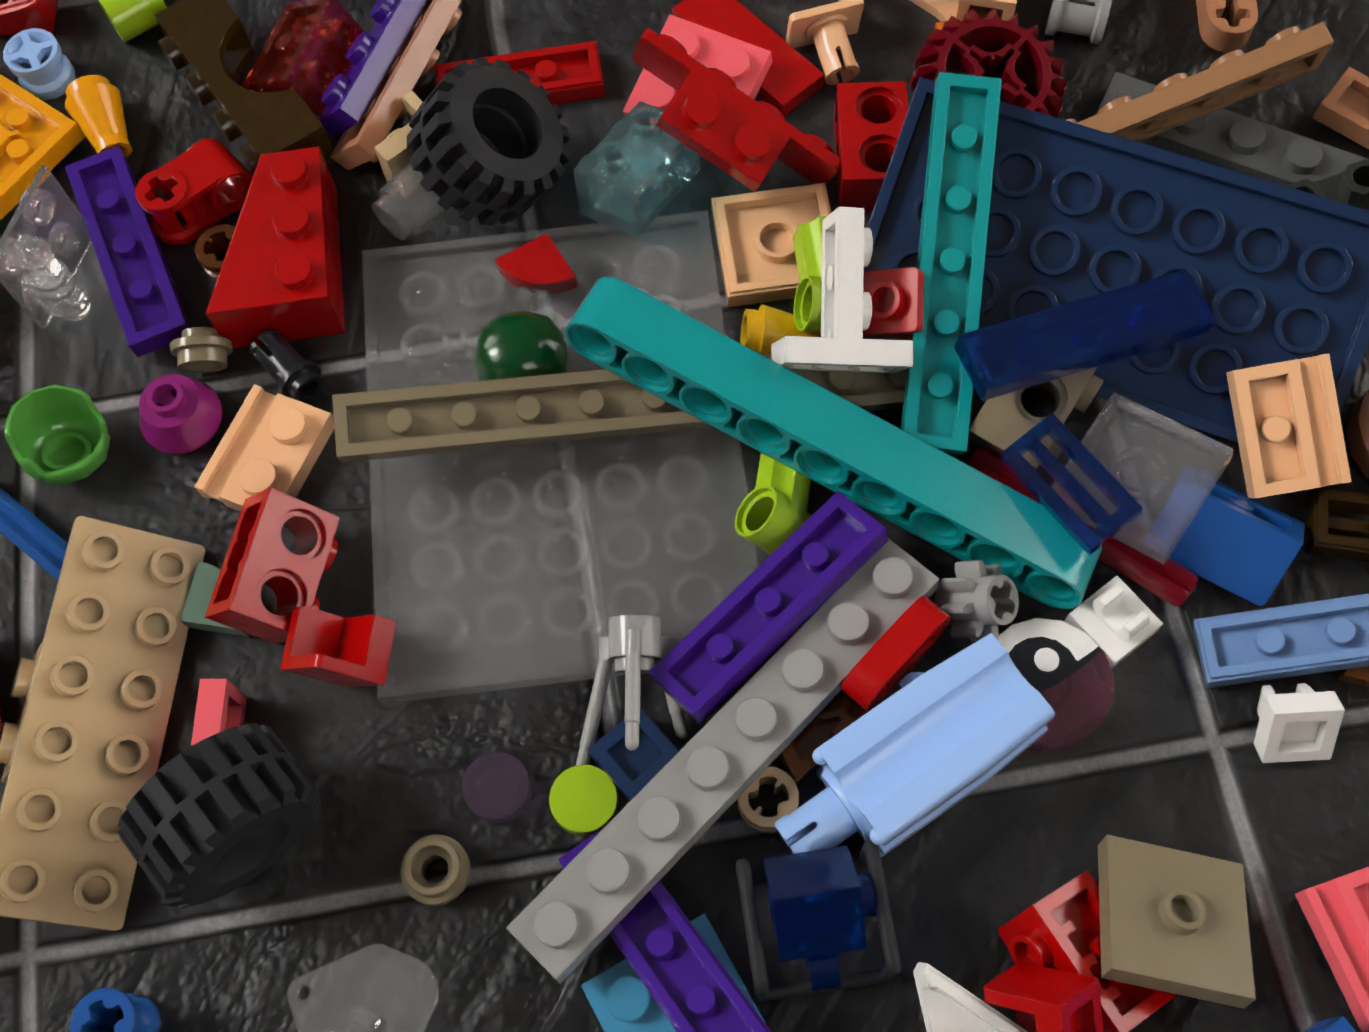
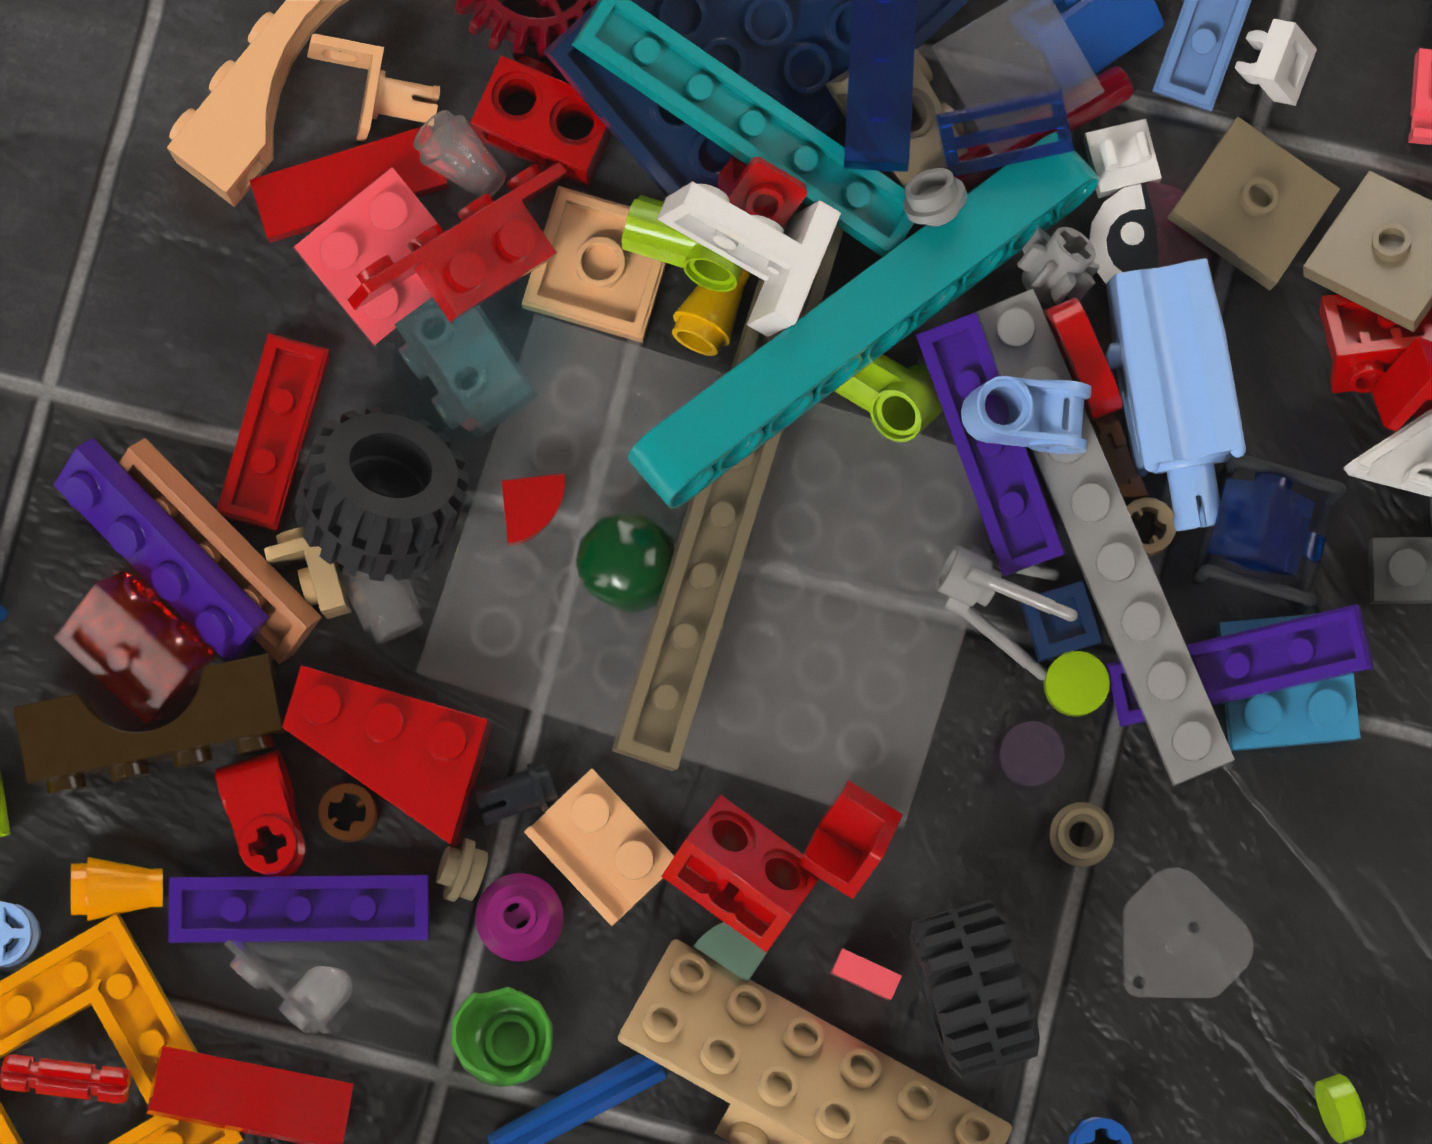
camera: 70 degrees left, 15 degrees up
(809, 92) = (457, 153): none -> clear cone
(811, 614) = (1041, 414): none -> light blue piece
(973, 444) = (934, 197): none -> light grey plate
(1141, 760) = (1253, 203): none -> dark tan plate

